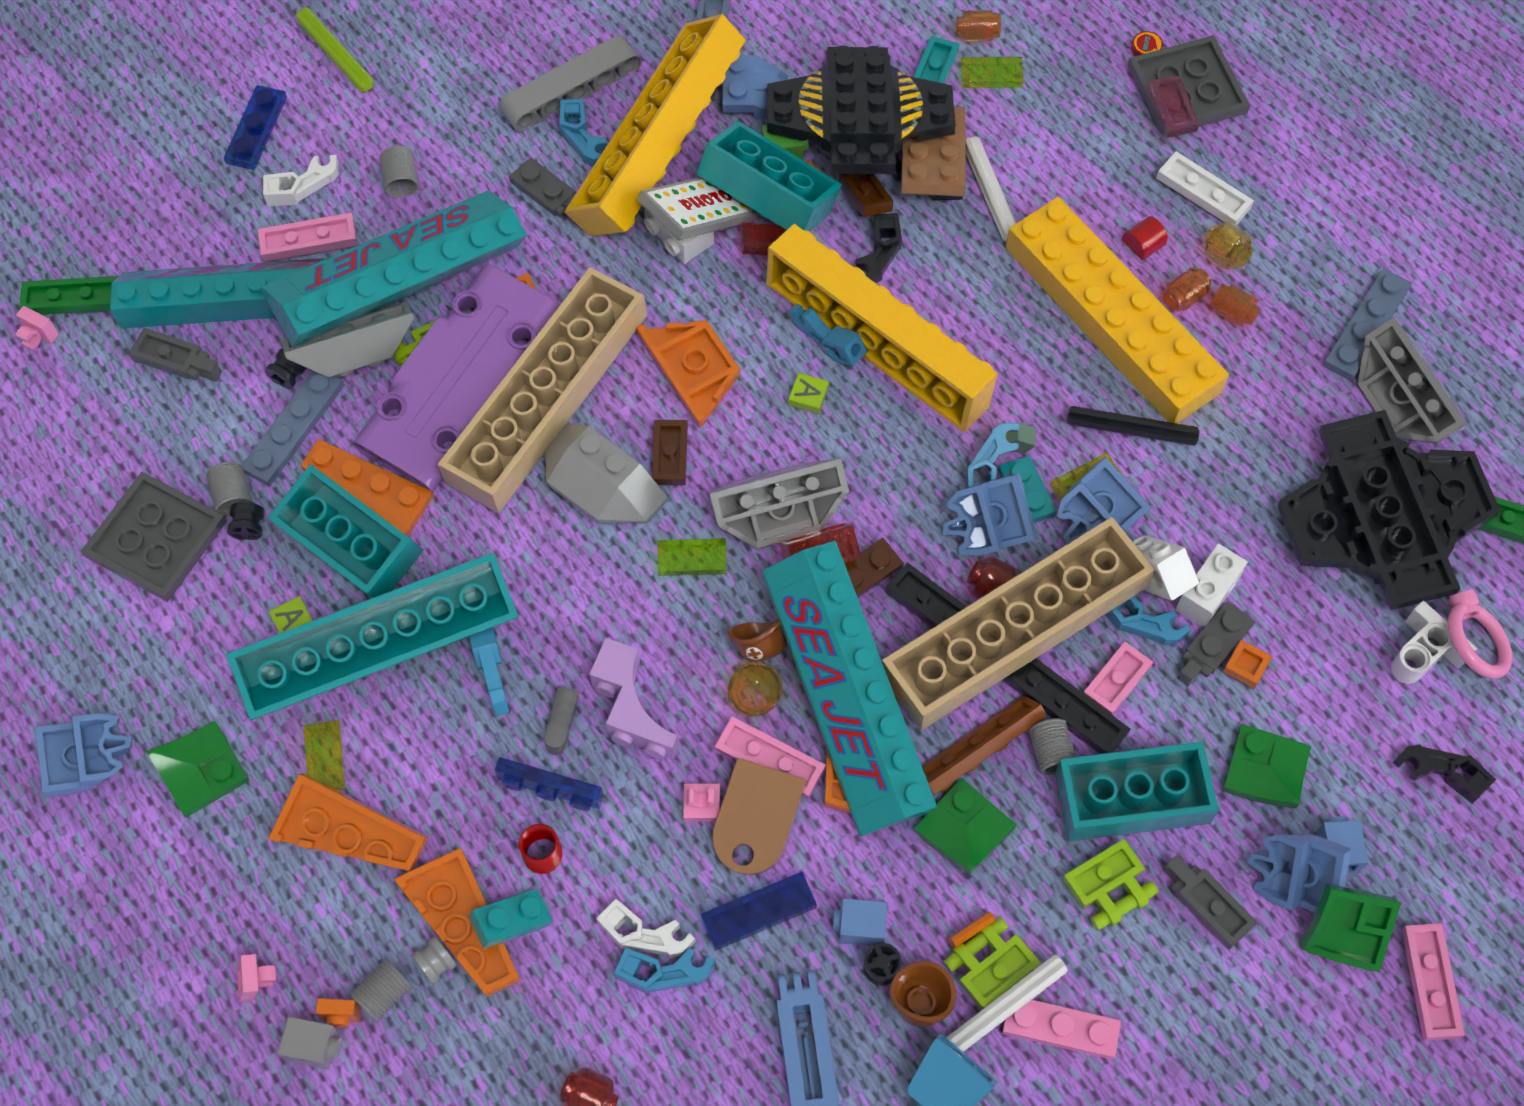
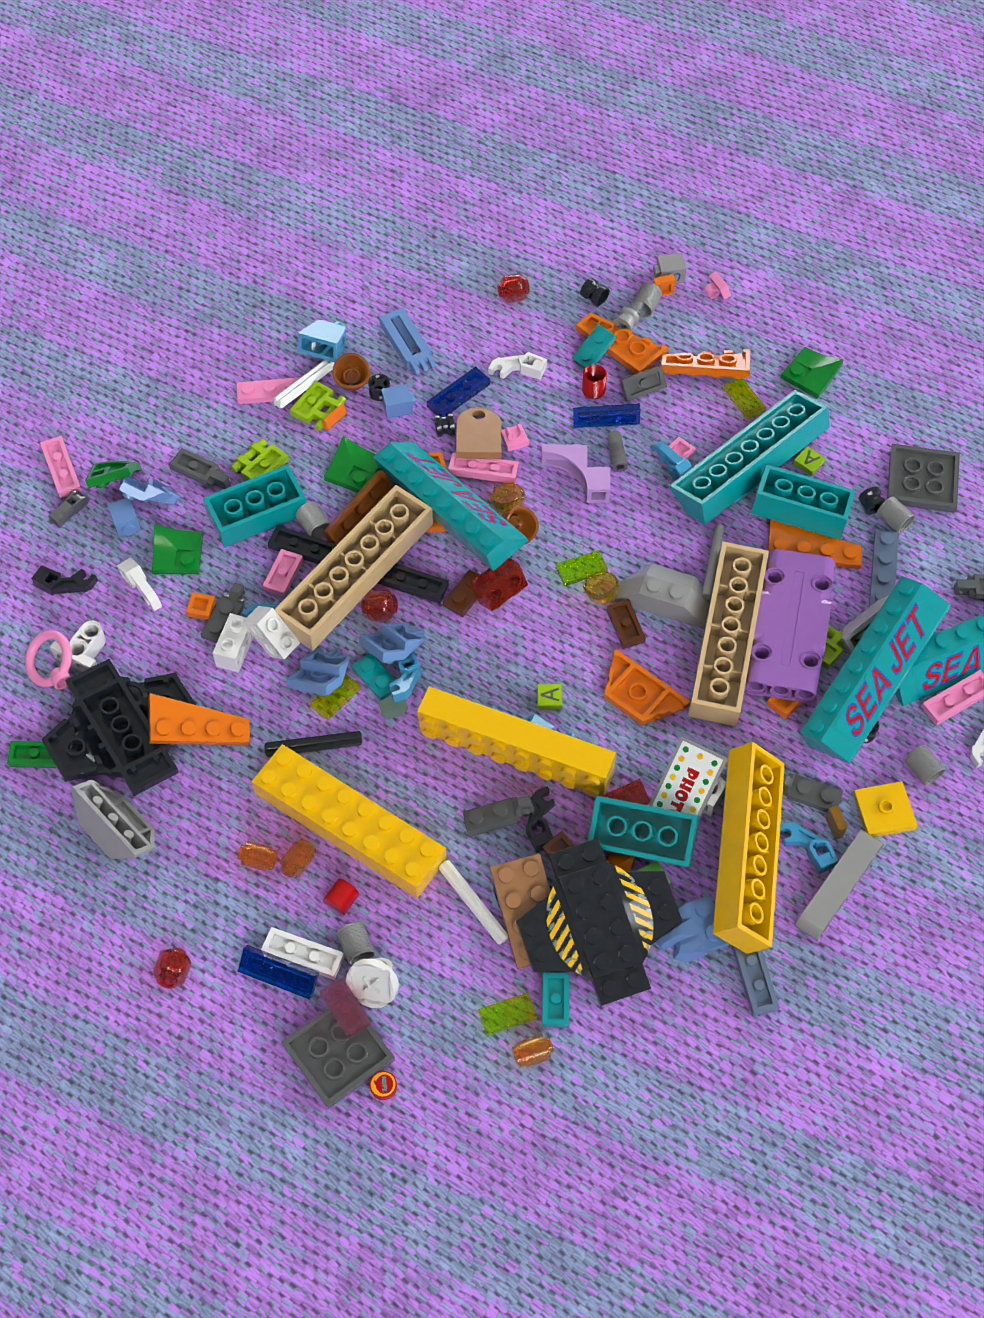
camera: 160 degrees right, 5 degrees down
(79, 753) = (882, 355): medium blue plate -> none
(457, 1041) = (595, 292): none -> black wheel
(466, 824) = (643, 383): none -> dark grey plate
(467, 695) = (683, 448): none -> bright pink tile
(472, 148) = (885, 809): none -> yellow plate
(512, 501) = (712, 562): none -> light grey bar
(538, 141) = (836, 822): none -> pearl gold tile
(666, 977) = (505, 348): dark azure piece -> none
(680, 506) = (601, 587): none -> clear yellow hair
(781, 502) = (542, 608): light grey wedge -> none
(802, 853) = (444, 424): none -> black wheel
(931, 265) = (496, 815): none -> dark grey hinge
(1132, 128) = (373, 982): none -> white tile
(1141, 171) = (355, 942): none -> light grey piece
(1228, 246) = (273, 904): clear yellow head -> none
(1237, 177) = (278, 972): none -> clear blue plate
(1302, 475) = (187, 723): none -> orange wing
(1337, 732) = (135, 577): none -> white piece
(1361, 213) = (172, 968): none -> clear red head
(1372, 313) = (153, 880): sand blue plate -> none
(1430, 897) = (67, 510): none -> flat silver bar

